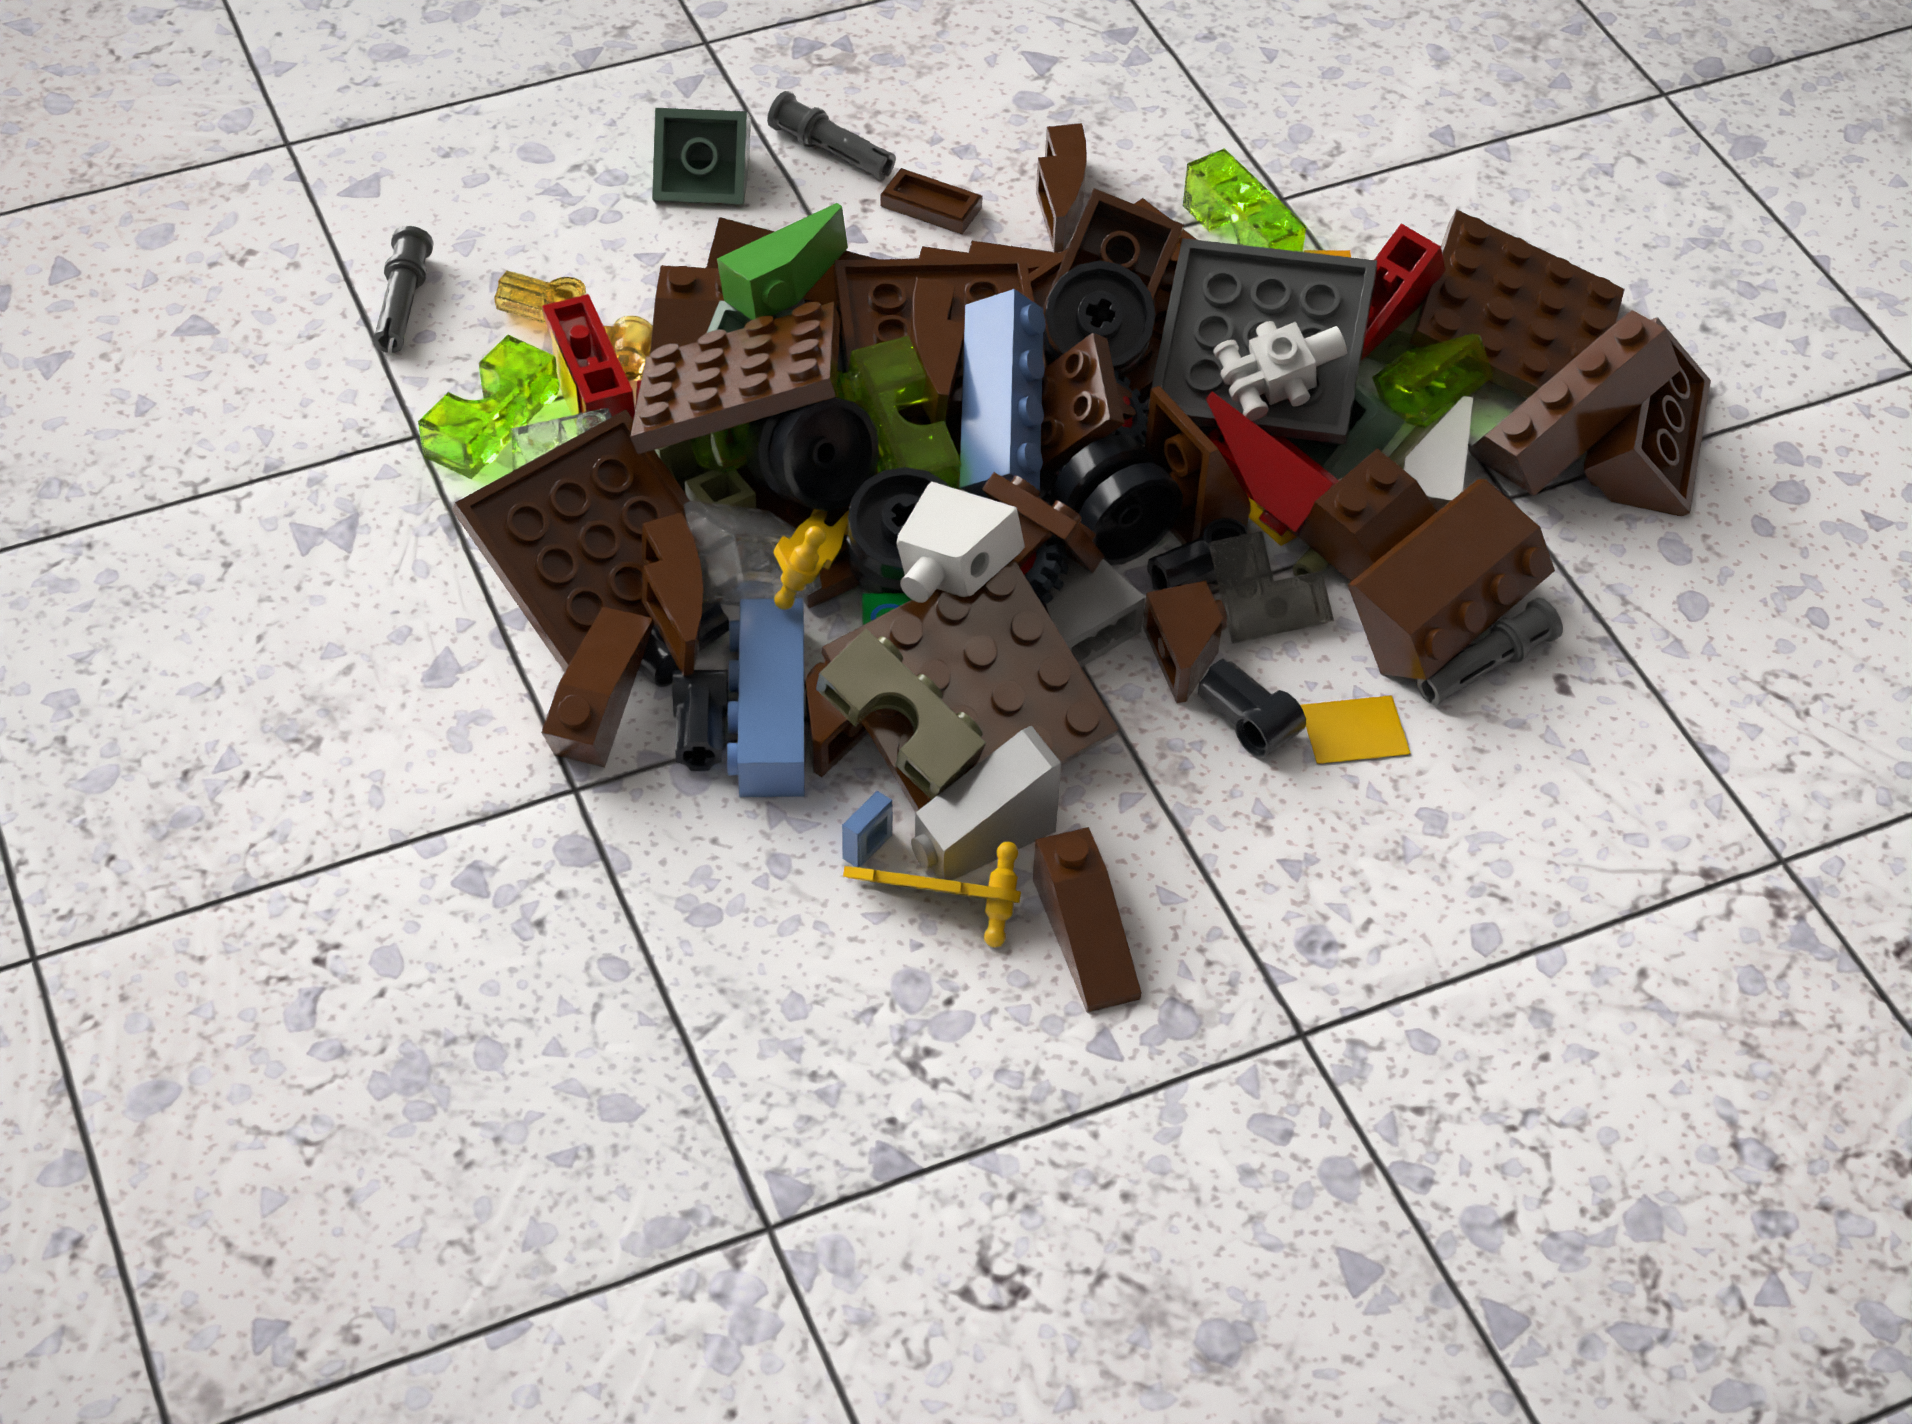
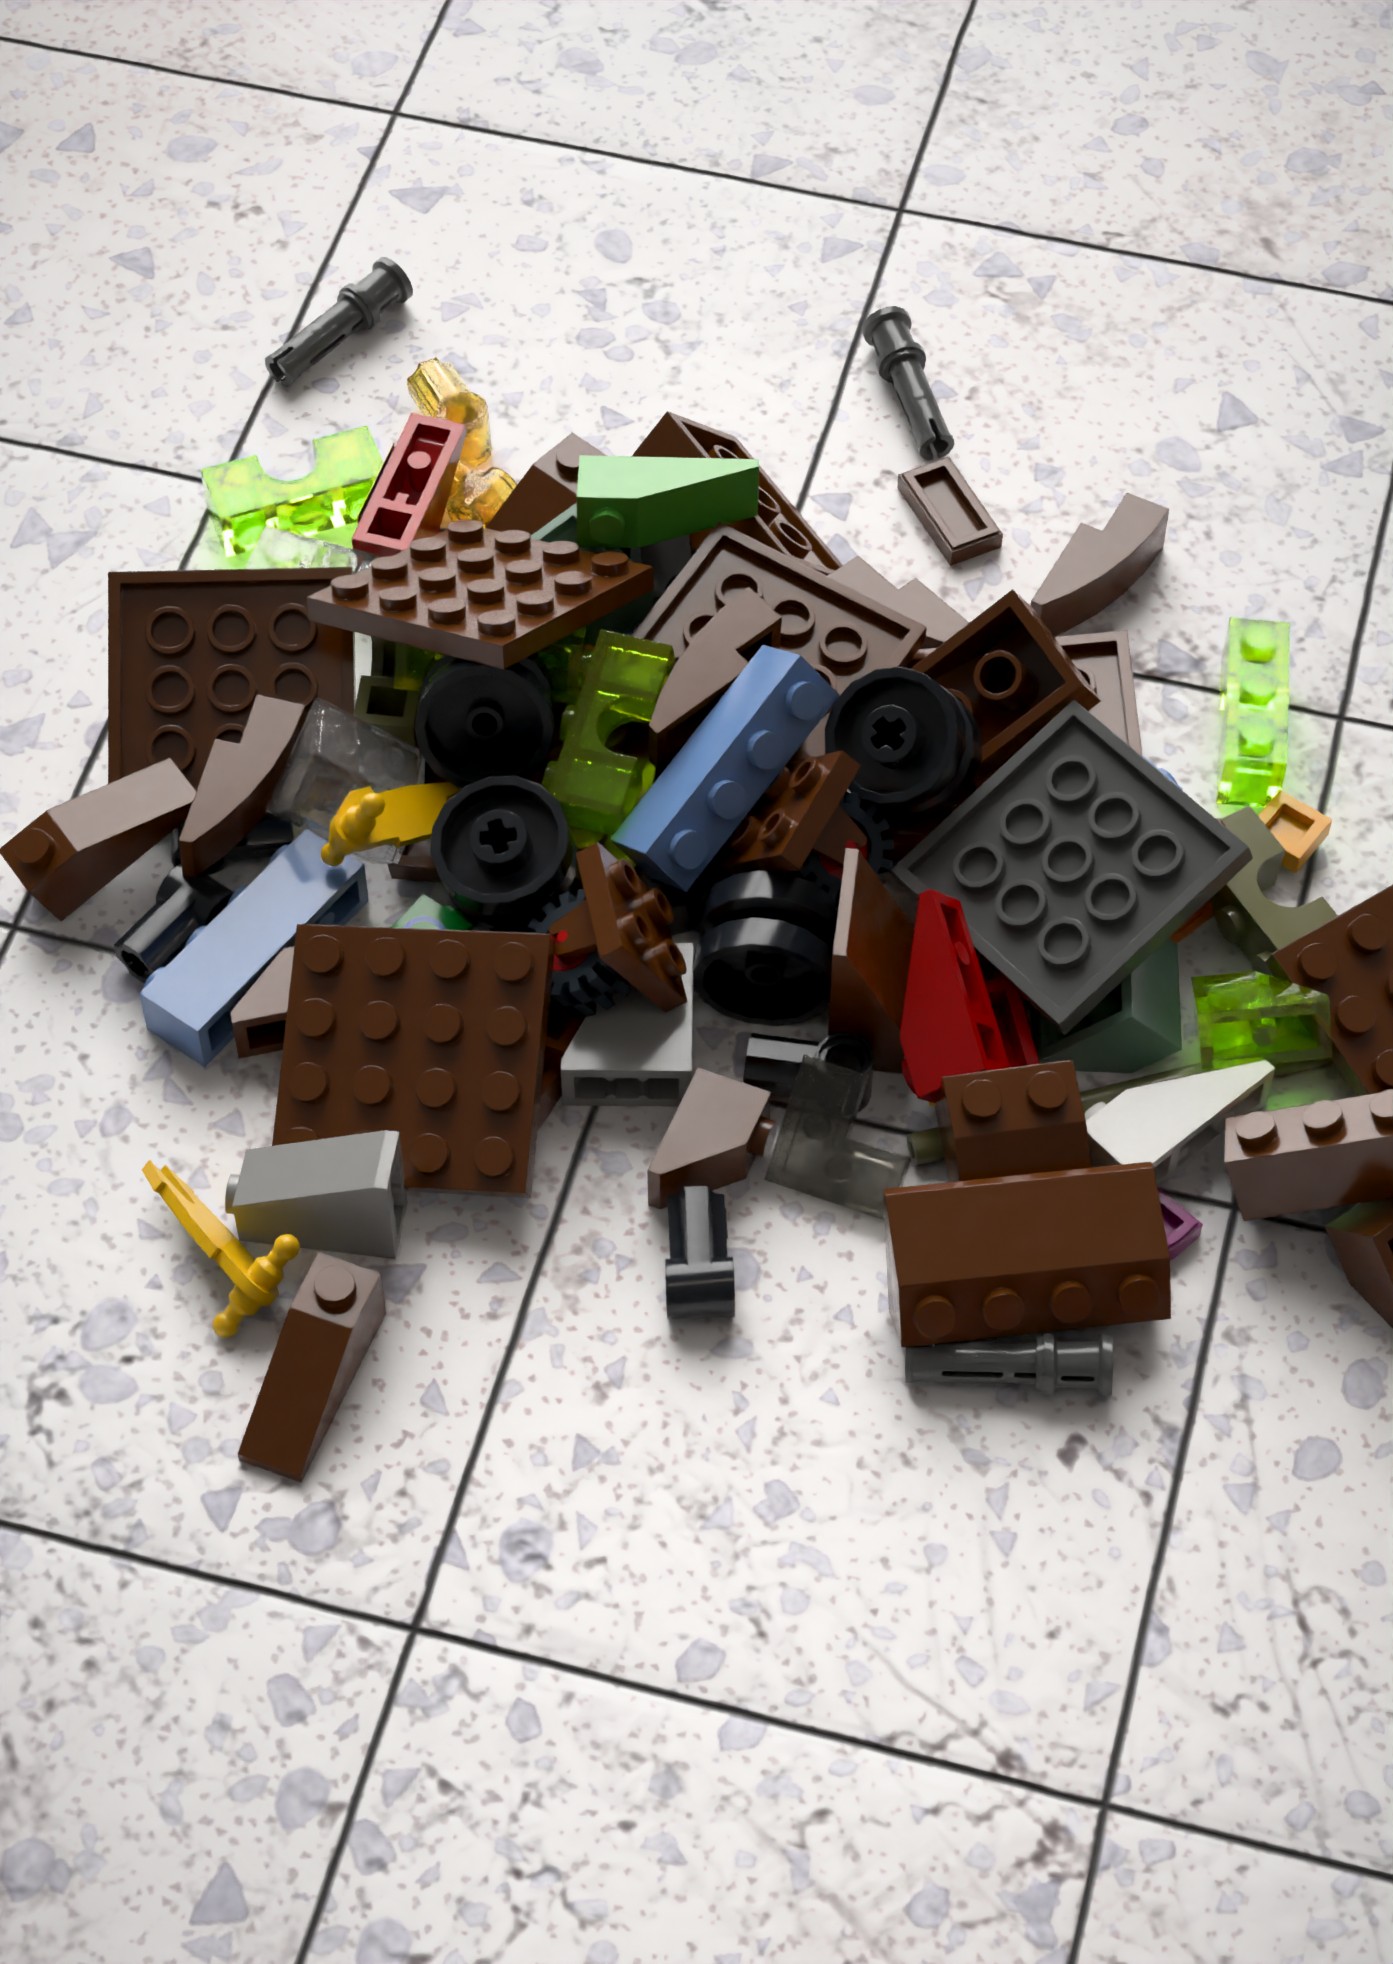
camera: 40 degrees right, 5 degrees up
(701, 155) = (753, 334): sand green slope -> none
(867, 829) = (207, 1137): medium blue tile -> none
(871, 678) = (314, 1091): olive arch -> none
(956, 542) = (486, 894): white torso -> none
(1278, 365) = (1036, 902): white piece -> none
(1355, 729) = (797, 1351): yellow sticker -> none
(1404, 276) = (1282, 892): red slope -> none

